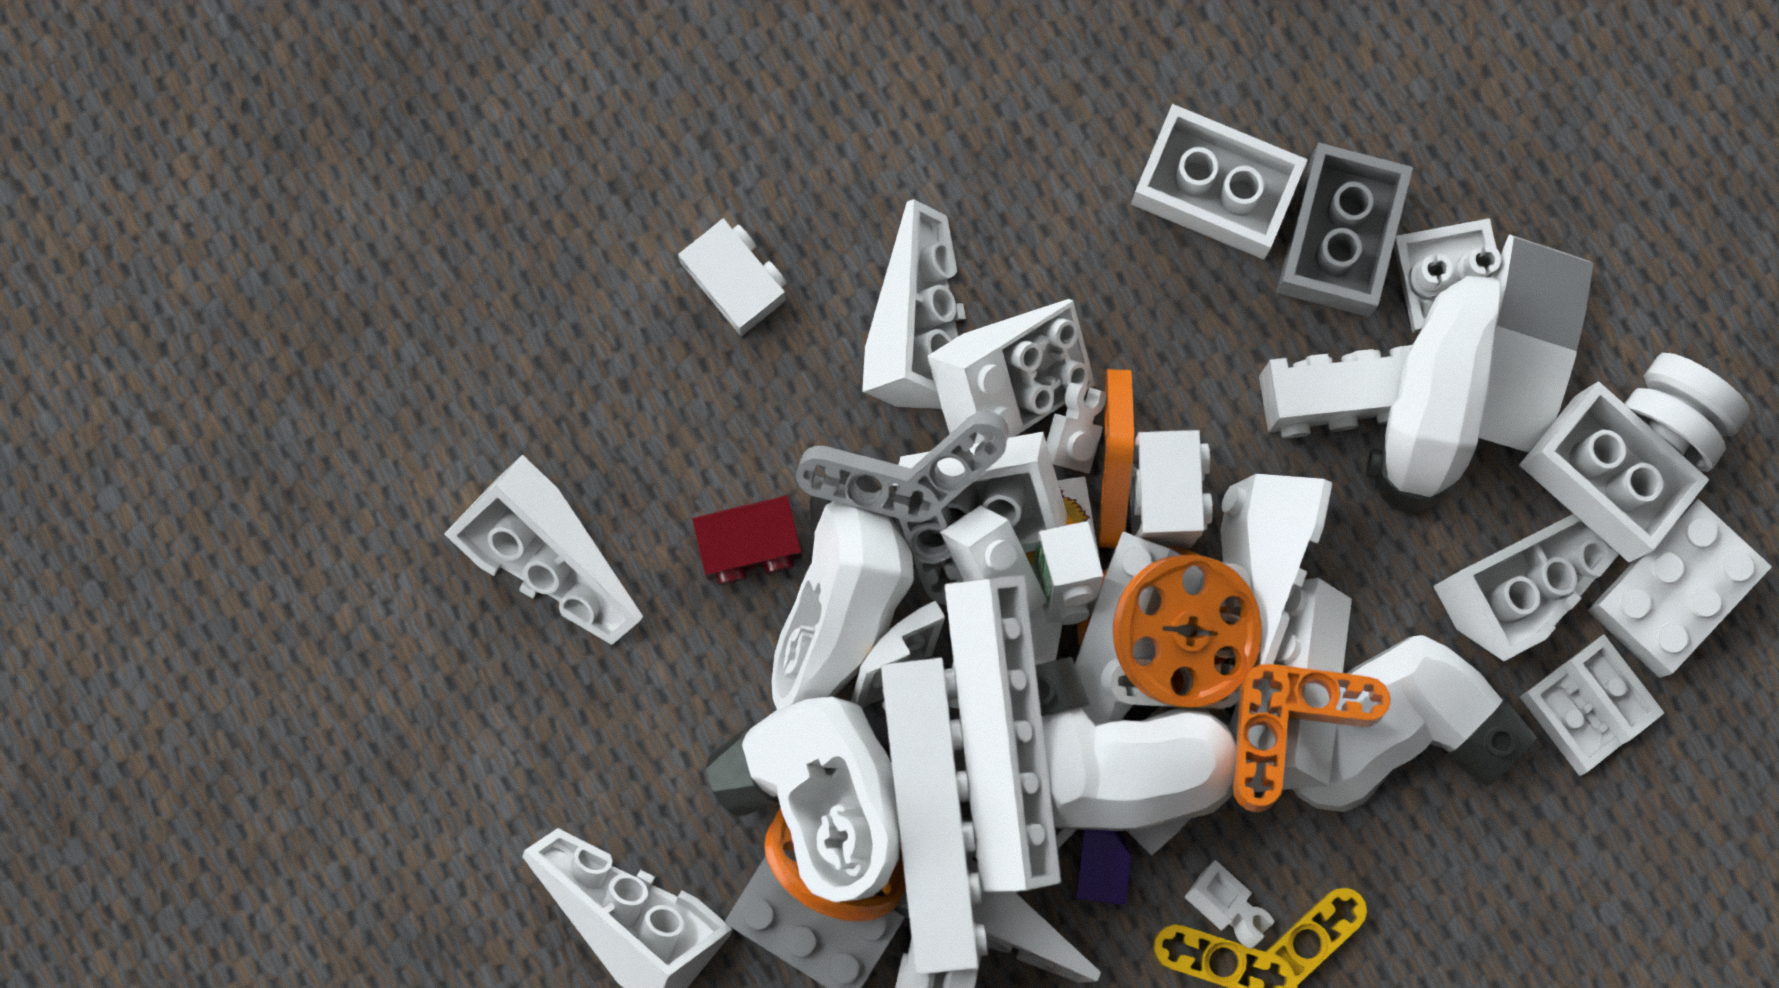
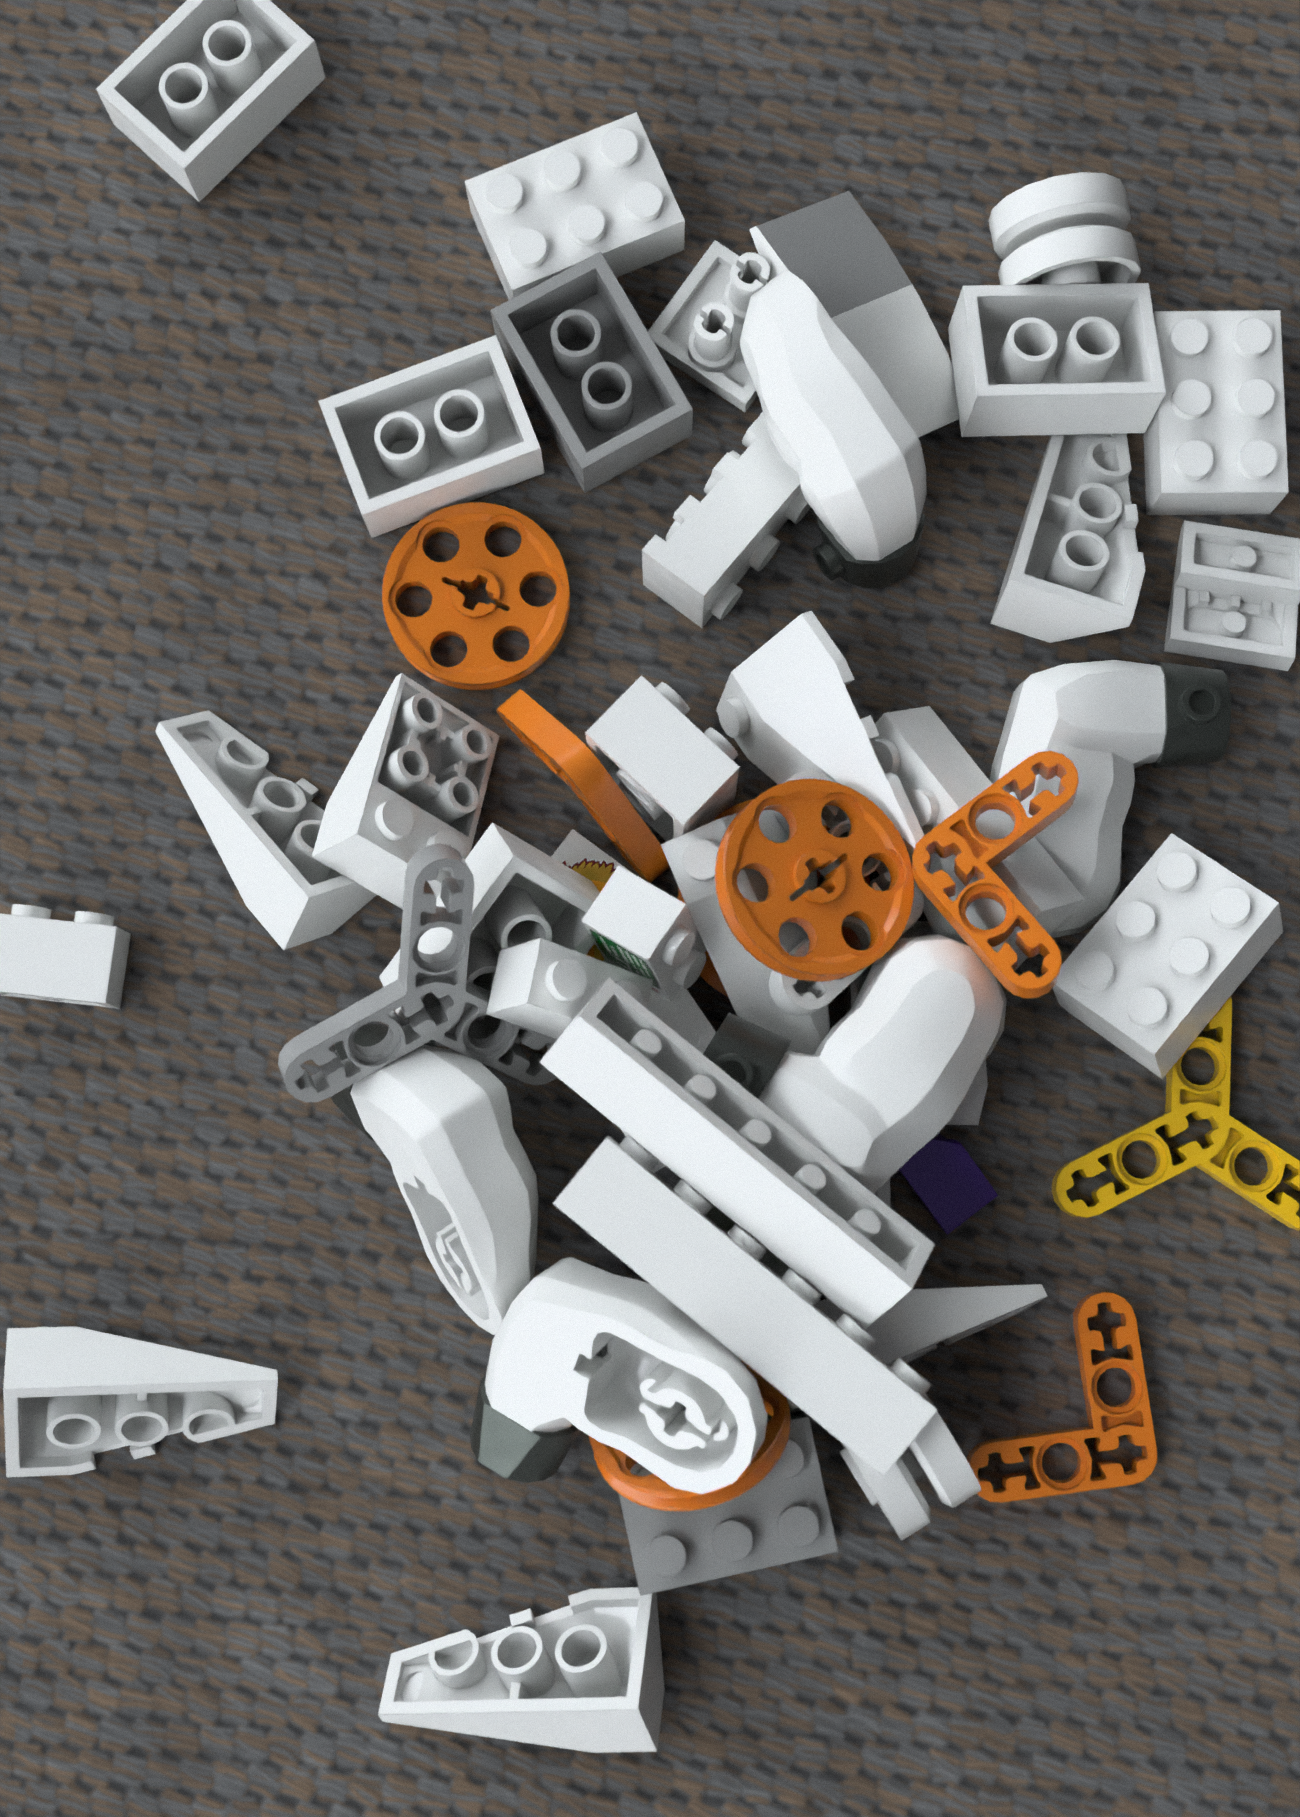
camera: 40 degrees left, 0 degrees up
(747, 539) = (308, 1197): dark red brick -> none
(907, 641) = (553, 1161): white slope -> none
(1074, 436) = (525, 800): white plate -> none
(1171, 273) = (482, 626): none -> orange wedge
(1225, 902) = (1087, 1103): white plate -> none
(1347, 863) = (1168, 954): none -> white brick
(1427, 125) = (574, 202): none -> white brick

